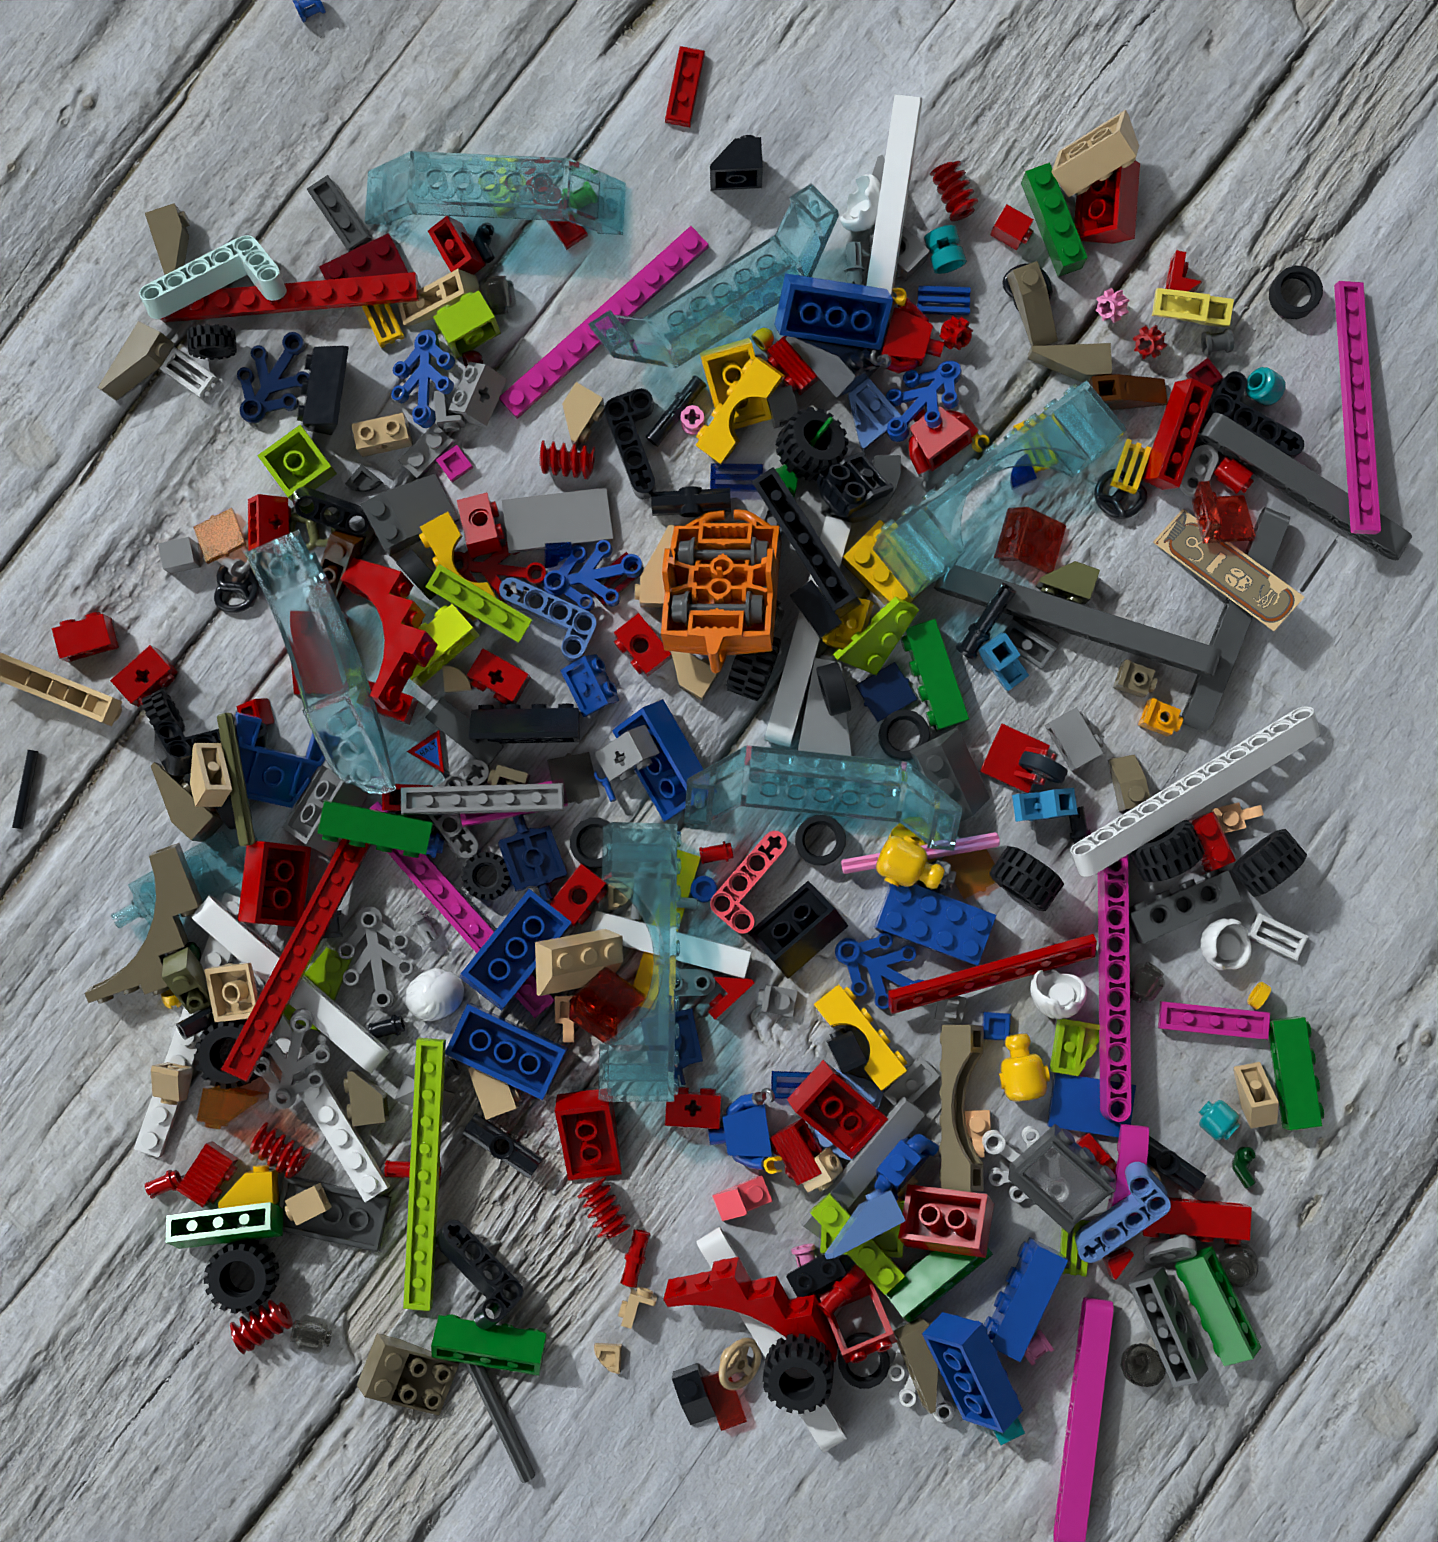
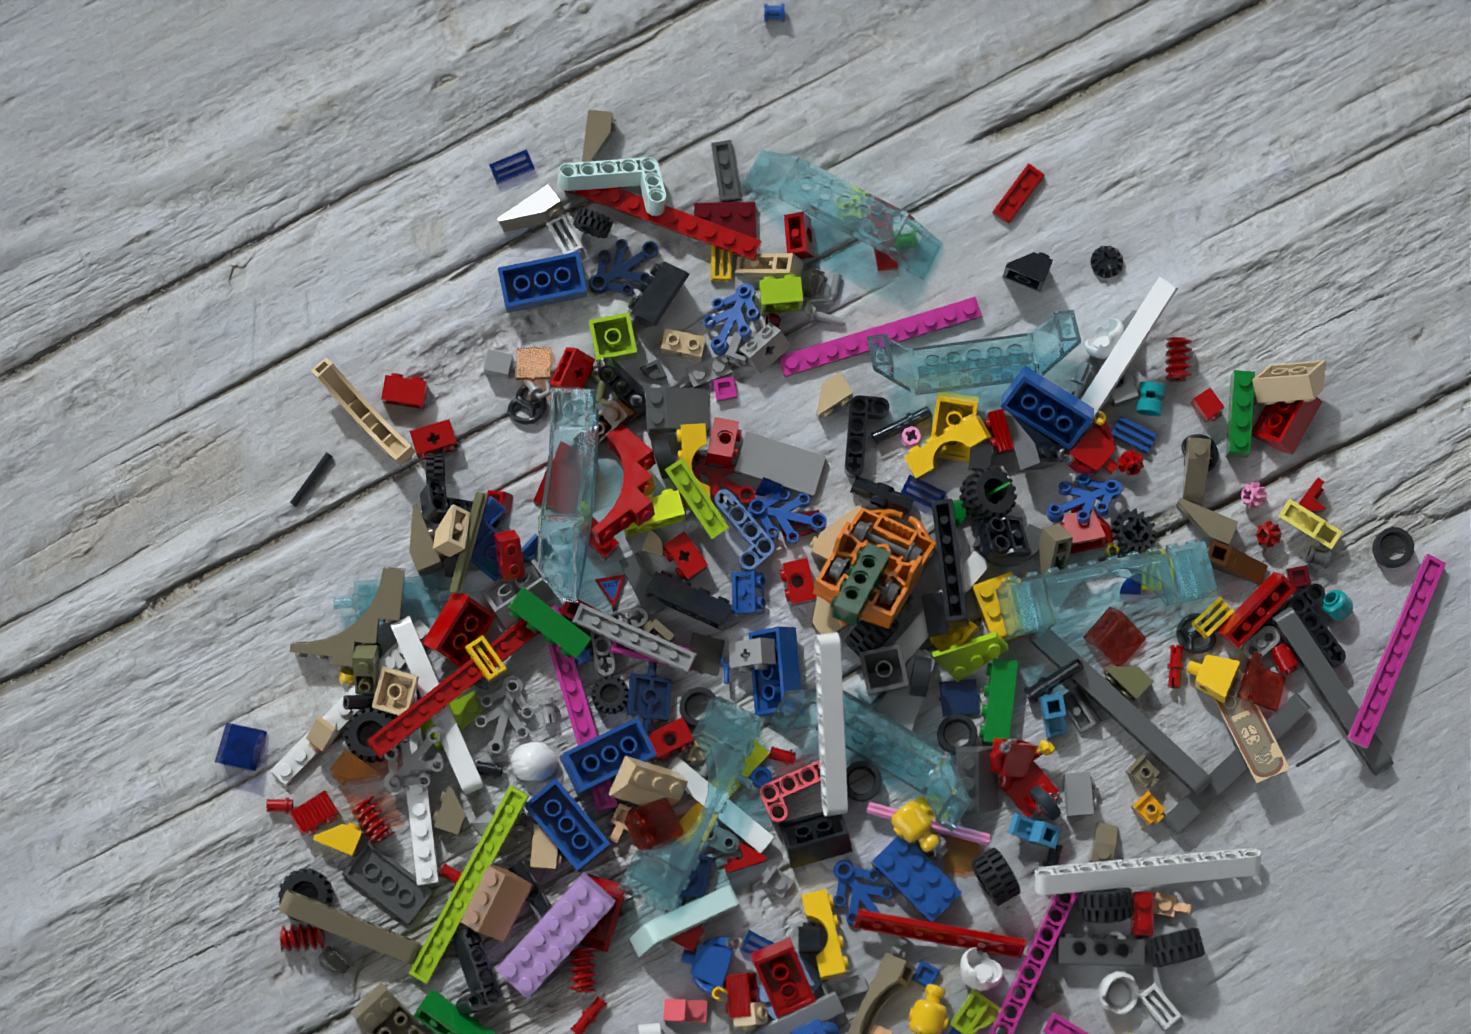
camera: 20 degrees right, 5 degrees down
(87, 1138) = (241, 747): none -> clear blue slope
(93, 323) = (530, 167): none -> clear blue tile
(185, 437) = (542, 282): none -> blue brick
(224, 1225) = (311, 853): green brick -> none
(292, 770) = (509, 555): none -> red brick
(306, 1291) = (349, 927): none -> dark tan beam
(307, 1204) = (376, 866): tan brick -> none
(339, 915) = (495, 673): none -> yellow tile
(466, 1180) = (496, 902): none -> medium nougat slope
(482, 241) = (819, 238): black arm -> none
(525, 329) = (832, 294): none -> light grey piece
(552, 1187) = (555, 935): none -> lavender brick
(566, 460) = (806, 424): red piece -> none
(693, 1097) = (682, 919): none -> light aqua beam
(716, 595) = (868, 571): none -> dark green brick
(756, 791) = (831, 724): none -> white beam
(763, 338) = (989, 402): yellow hinge -> none
(788, 700) = (884, 669): none -> dark grey slope
(820, 128) = (1102, 269): none -> black gear
(870, 412) = (1042, 491): medium blue wing -> none
(917, 468) = (1054, 547): none -> dark tan slope
(982, 731) = (1014, 756): none -> red torso
(996, 409) = (1134, 530): none -> black gear
(1114, 542) = (1175, 666): none -> red pin
(1165, 531) = (1215, 676): none -> yellow torso

